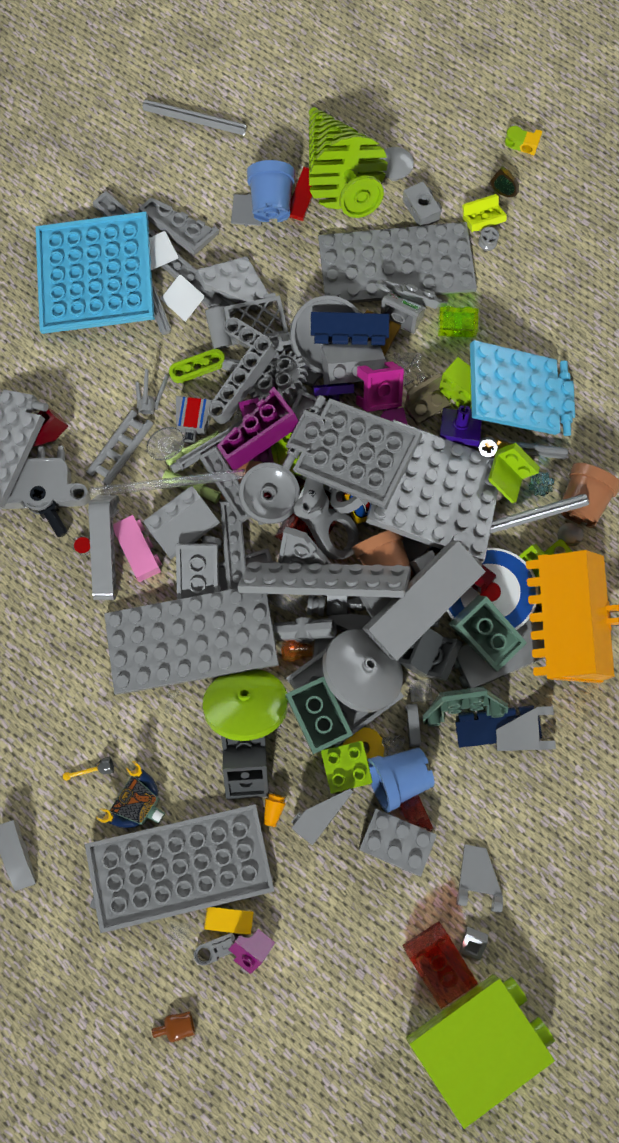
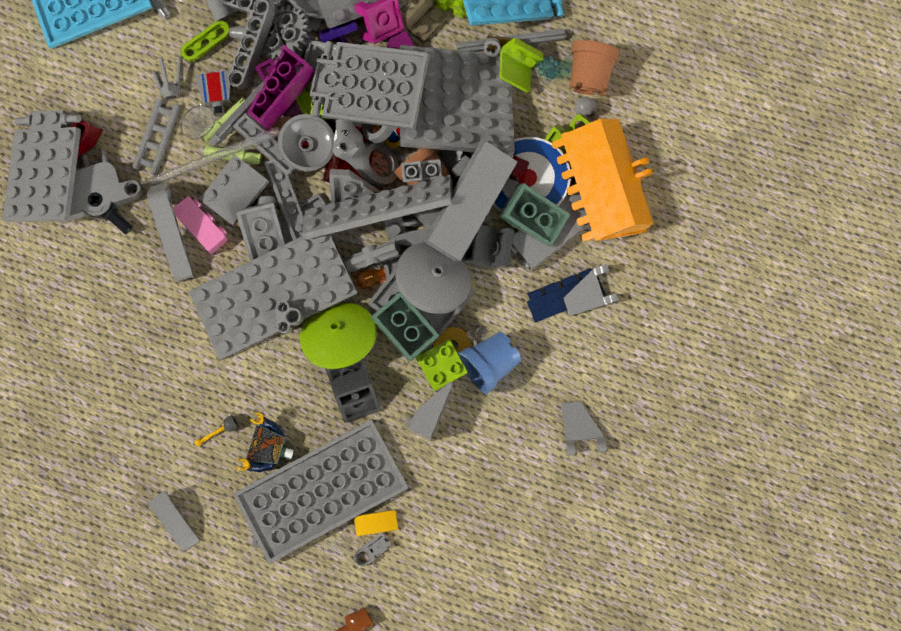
camera: 15 degrees left, 5 degrees up
(81, 546) = (150, 236): red tile -> none
(193, 669) = (283, 317): none -> light grey piece
(251, 951) = (402, 541): magenta brick -> none
(273, 809) = (388, 419): light orange cone -> none
(316, 605) = (376, 232): light grey wheel -> none
(381, 553) = (421, 170): none -> light grey slope
(397, 842) = (503, 417): light grey brick -> none
(413, 726) = (490, 314): light grey piece -> none
(415, 813) = (512, 388): clear red slope -> none
(420, 690) = (488, 282): clear plate -> none
(440, 964) = (566, 508): clear red slope -> none
(460, 426) = (461, 35): dark purple tile -> none
(461, 699) = (528, 278): sand green wedge -> none
(474, 943) = (590, 483): light grey slope -> none
(482, 1048) = (617, 563): lime brick -> none
(539, 512) = (552, 95): light grey axle -> none

